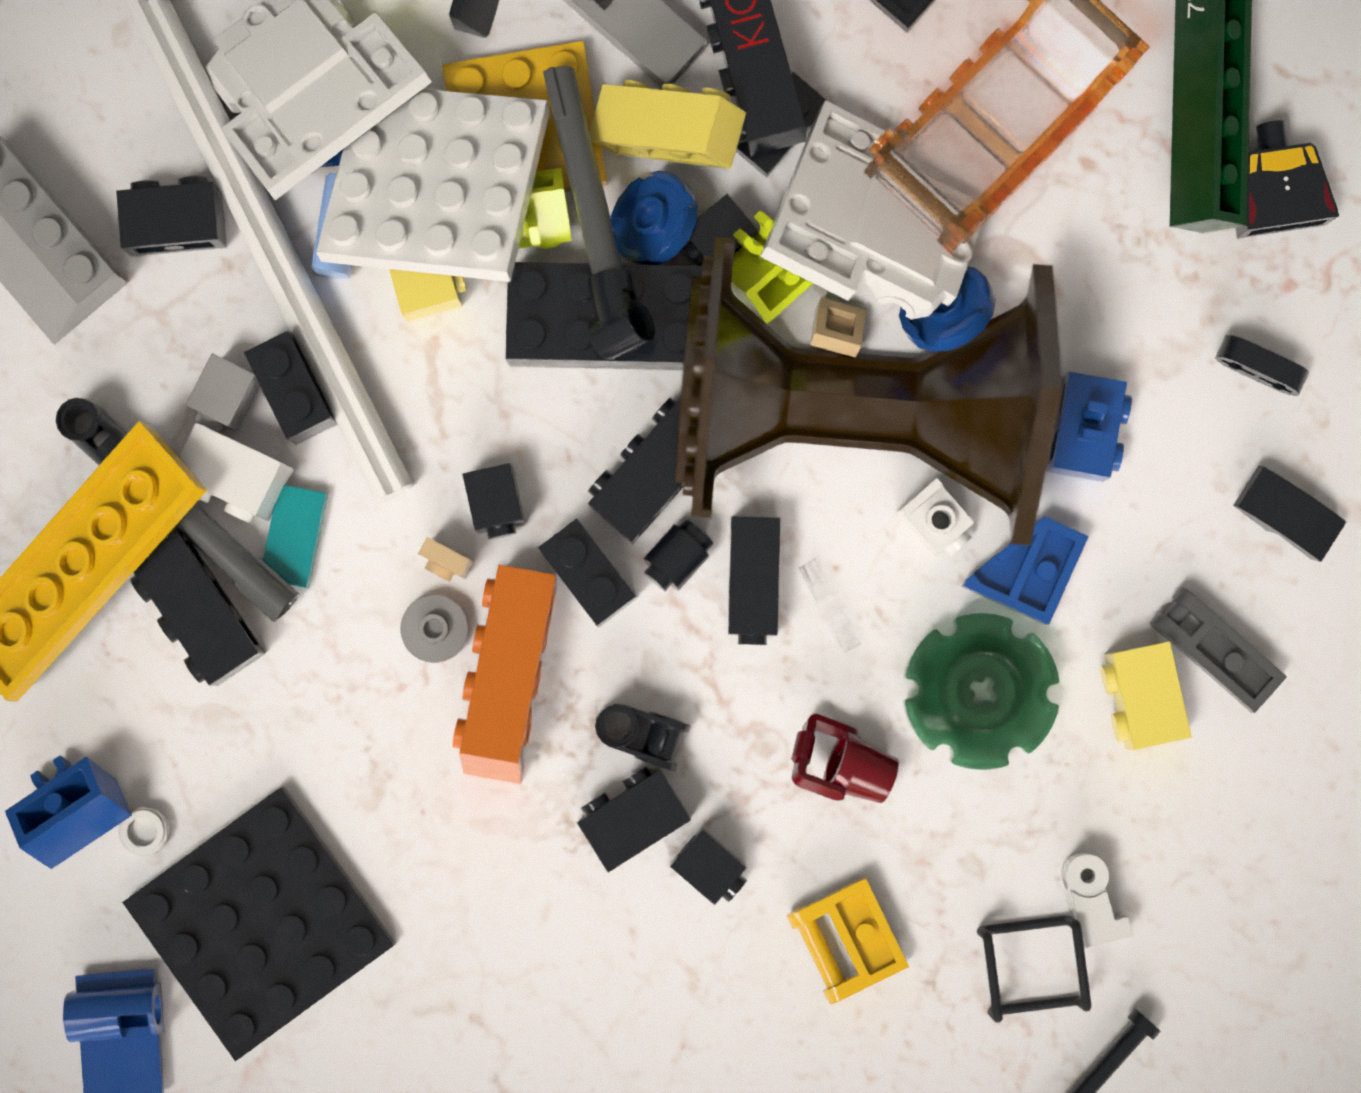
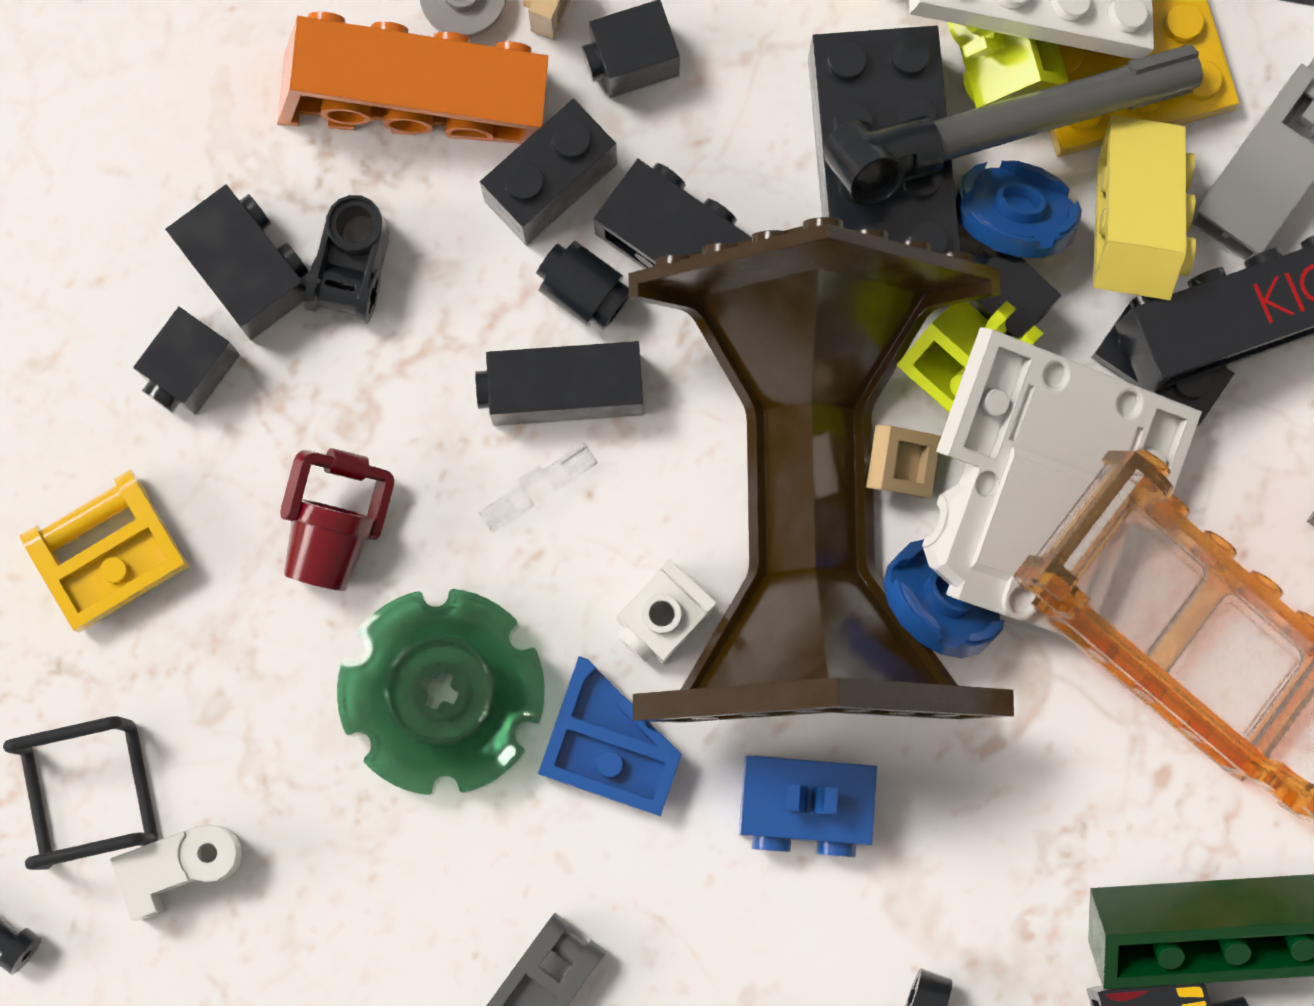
camera: 80 degrees right, 5 degrees down
(1145, 696) = (454, 913): light yellow brick -> none

